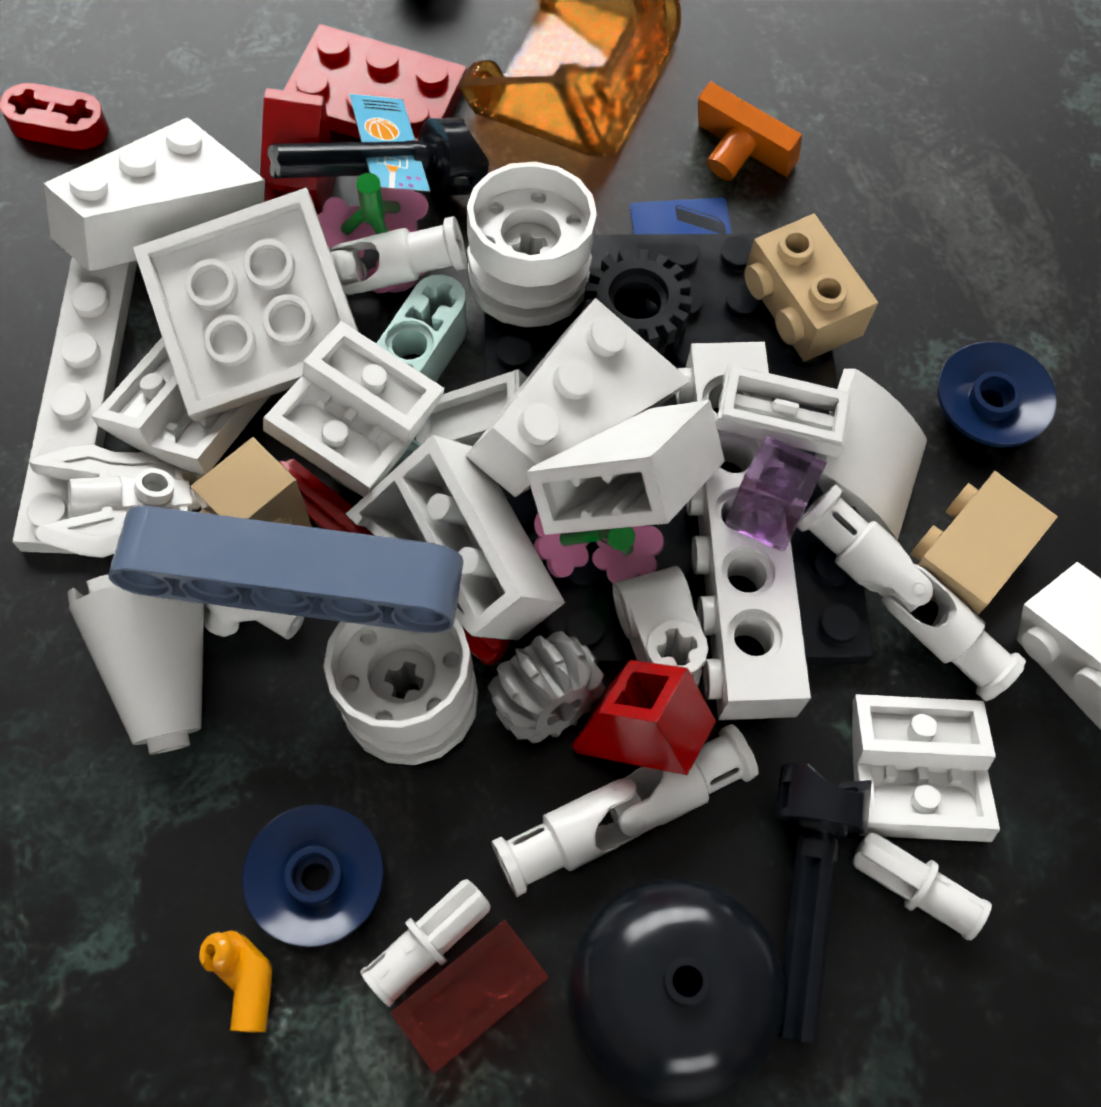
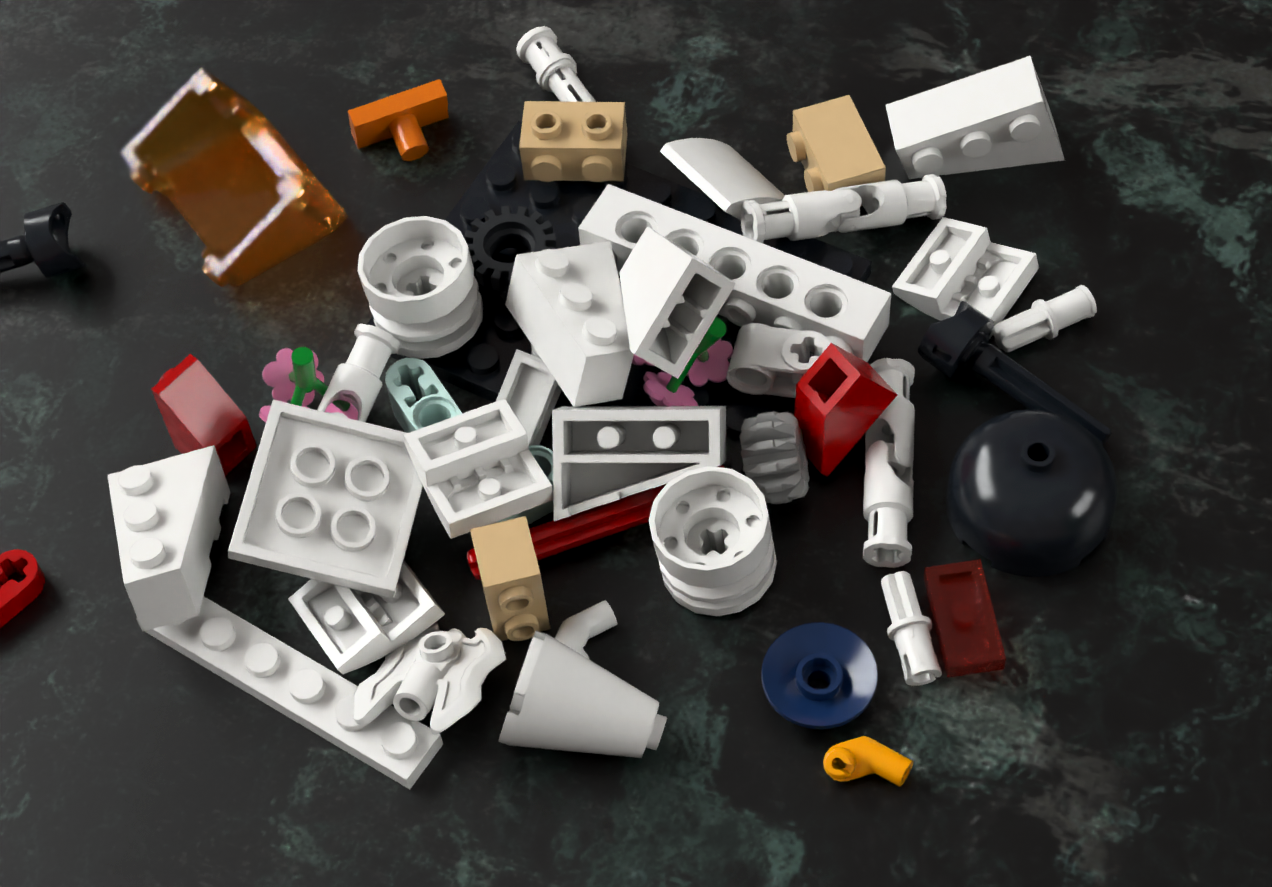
camera: 50 degrees left, 10 degrees down
(287, 569) = (600, 546): sand blue beam -> none
(348, 63) = (135, 349): plate -> none
(387, 121) = (242, 343): medium azure sticker -> none
(442, 147) = (268, 321): black piece -> none
(681, 217) = (440, 193): blue sticker -> none
(774, 493) = (738, 229): clear purple bracket -> none
(783, 417) = (680, 201): white tile -> none
(899, 233) = (552, 59): none -> white pin
(1009, 379) = (727, 84): dark blue dish -> none

